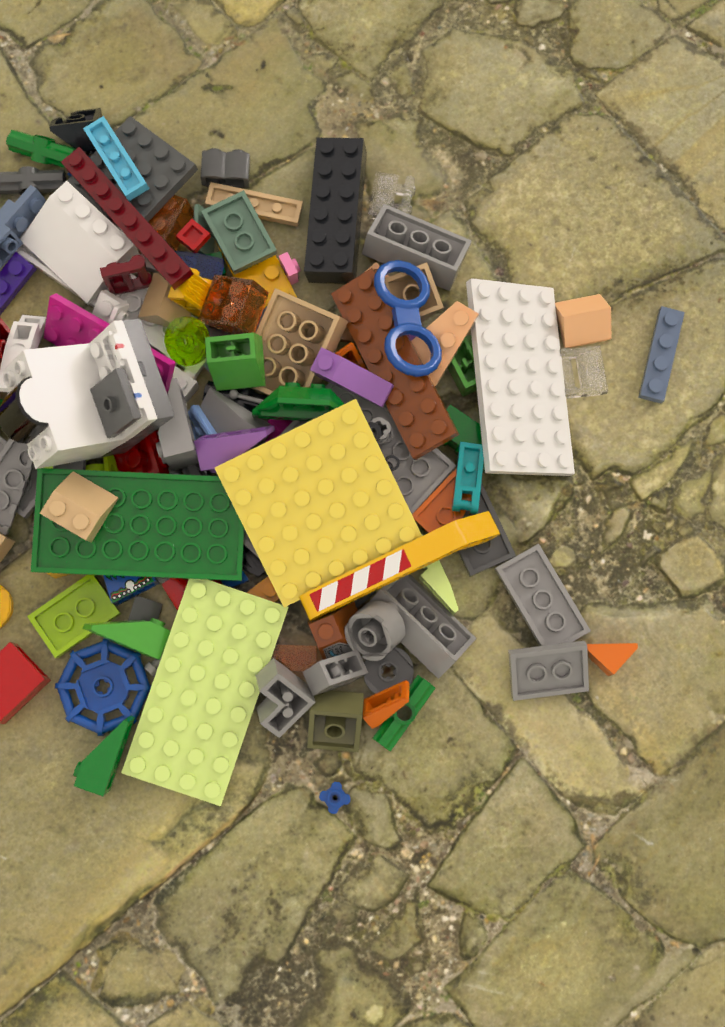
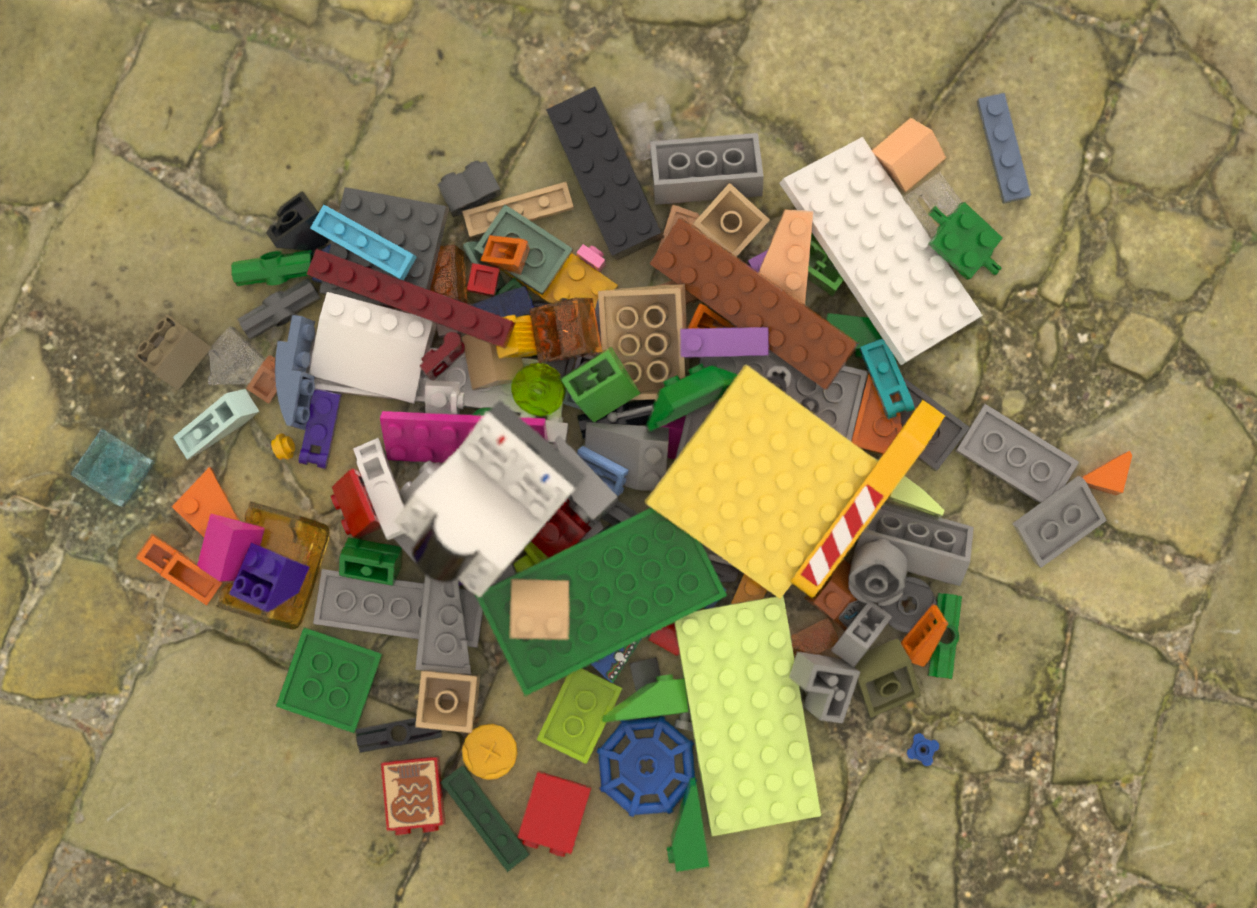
camera: 20 degrees left, 5 degrees up
(115, 403) = (525, 495): dark grey plate -> none
(221, 447) = (641, 475): medium lavender slope -> none
(223, 225) = (506, 253): none -> orange slope
(407, 318) = (745, 253): blue bar -> none
(591, 407) = (965, 240): none -> green plate

